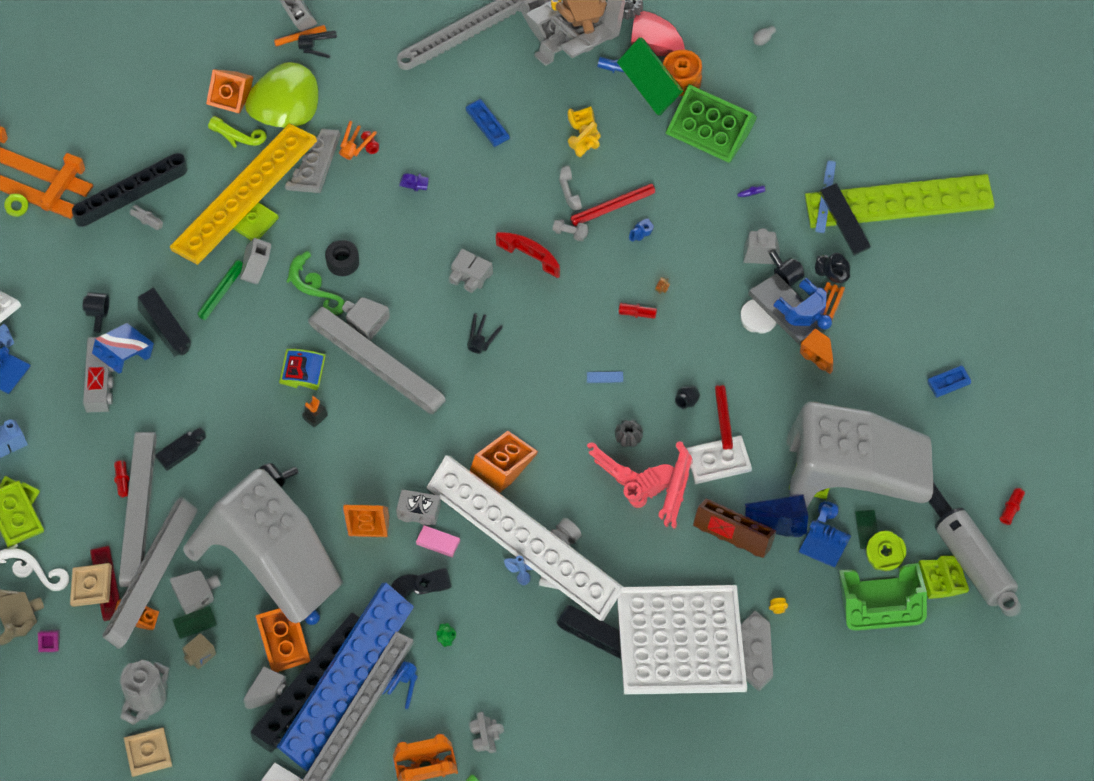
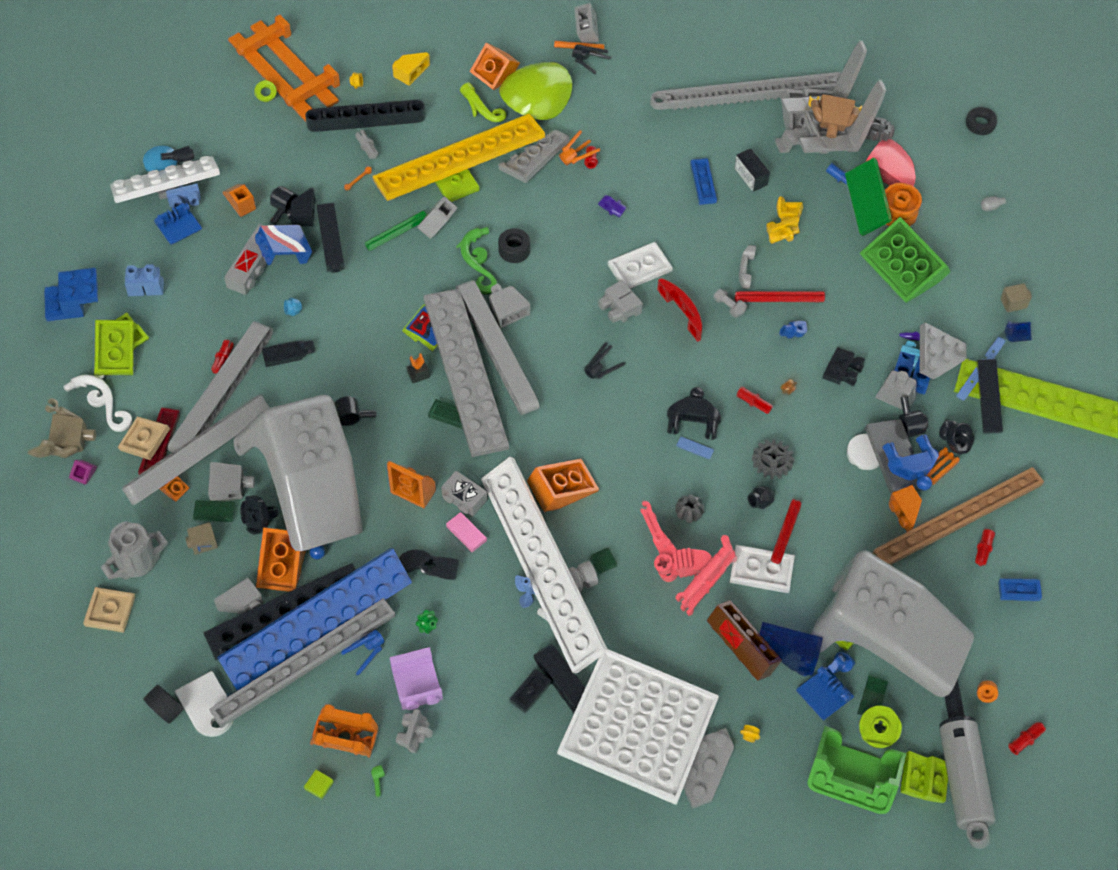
camera: 20 degrees right, 0 degrees up
(53, 321) = (240, 199): none -> orange slope
(100, 157) = (356, 80): none -> yellow plate
(120, 306) = (303, 209): none -> black slope
(147, 123) = (410, 67): none -> yellow slope
(160, 242) = (368, 170): none -> orange hinge
(162, 404) = (292, 307): none -> dark azure plate
(238, 607) = (256, 514): none -> black tile
(360, 396) = (466, 373): none -> light grey plate
(364, 441) = (445, 413): none -> clear green tile
(462, 689) = (415, 679): none -> lavender panel
(469, 228) = (640, 265): none -> white tile
(528, 93) = (752, 170): none -> black brick
(569, 654) = (530, 691): none -> black plate
(575, 512) = (603, 560): none -> clear green tile
(588, 342) = (694, 410): none -> black connector
(680, 358) = (773, 459): none -> dark grey gear
(698, 244) = (839, 364): none -> black plate
(768, 214) = (910, 361): none -> blue hips
(782, 197) = (939, 351): none -> light grey plate
(826, 117) = (1015, 297): none -> dark tan brick
(842, 149) = (1018, 331): none -> clear blue plate
(869, 338) = (959, 516): none -> medium nougat plate
(902, 357) = (984, 547): none -> red axle
(962, 481) = (987, 691): none -> orange tile

